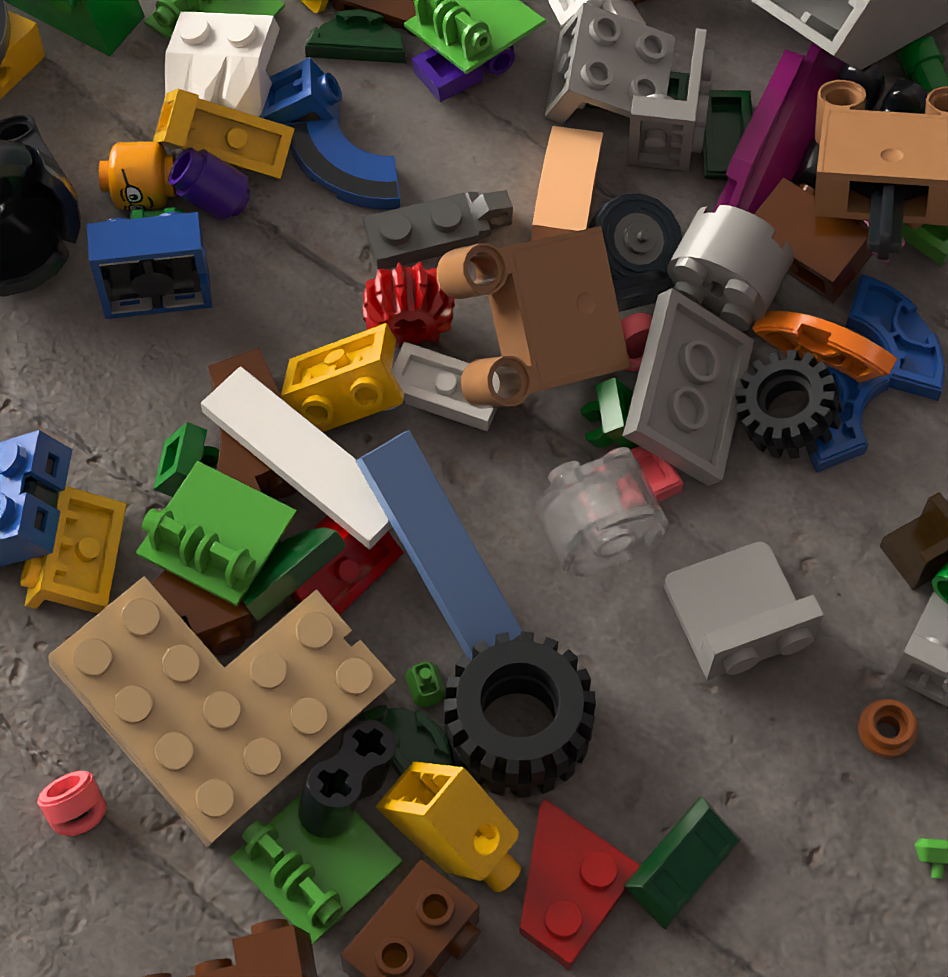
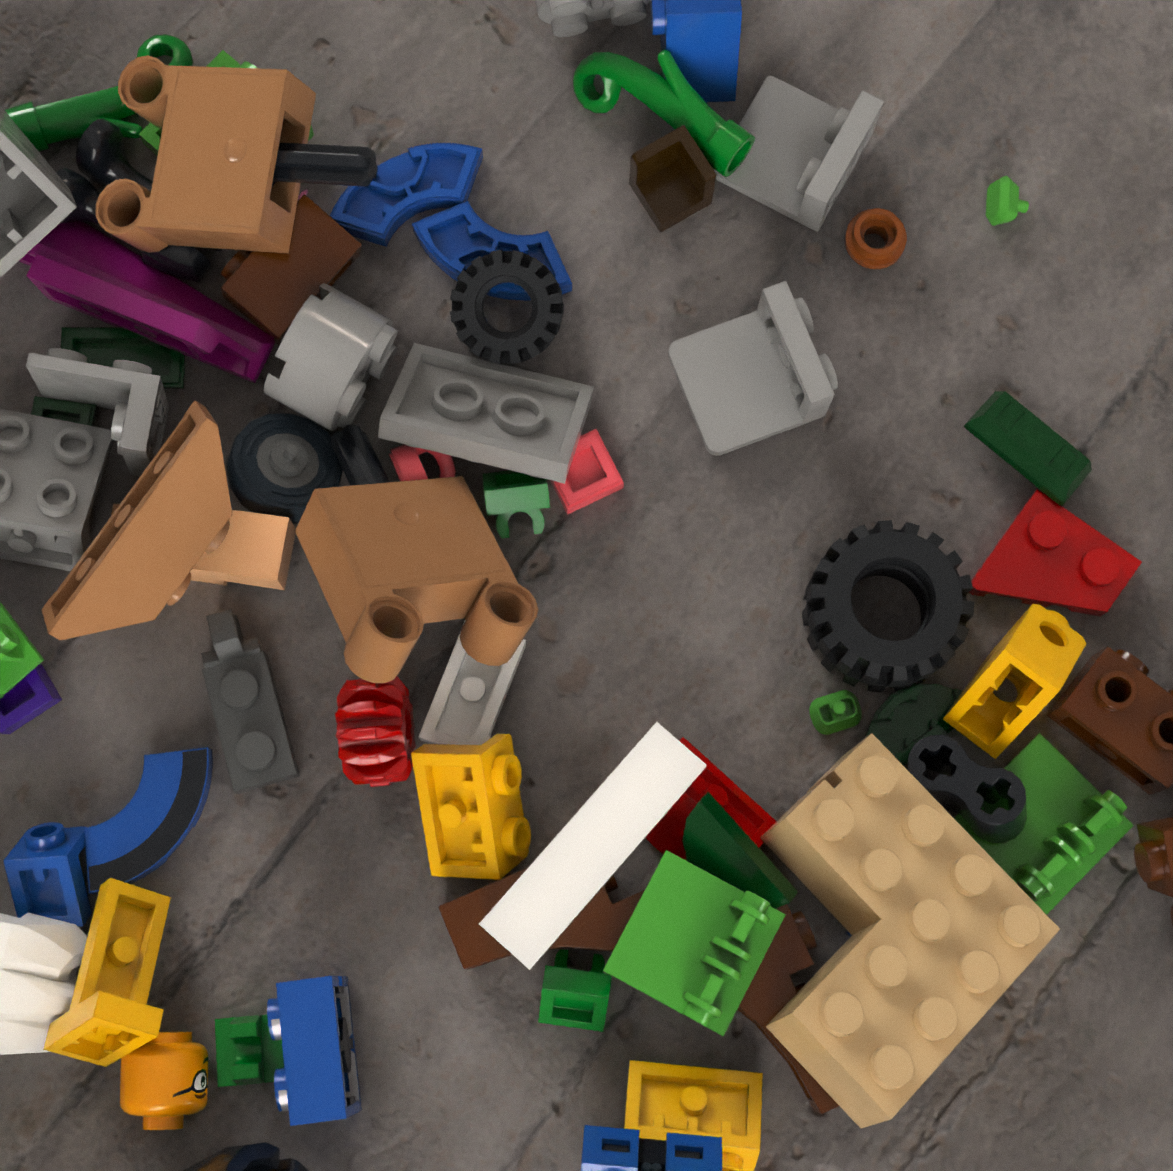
camera: 90 degrees left, 15 degrees up
(70, 798) = (993, 1096): coral tile -> none
(209, 183) = (189, 982): dark purple brick -> none
(437, 543) = (701, 690): medium blue tile -> none
(563, 128) = (151, 537): none -> medium nougat wedge
(600, 512) = (656, 512): clear brick -> none
(827, 342) = (438, 260): orange tile -> none

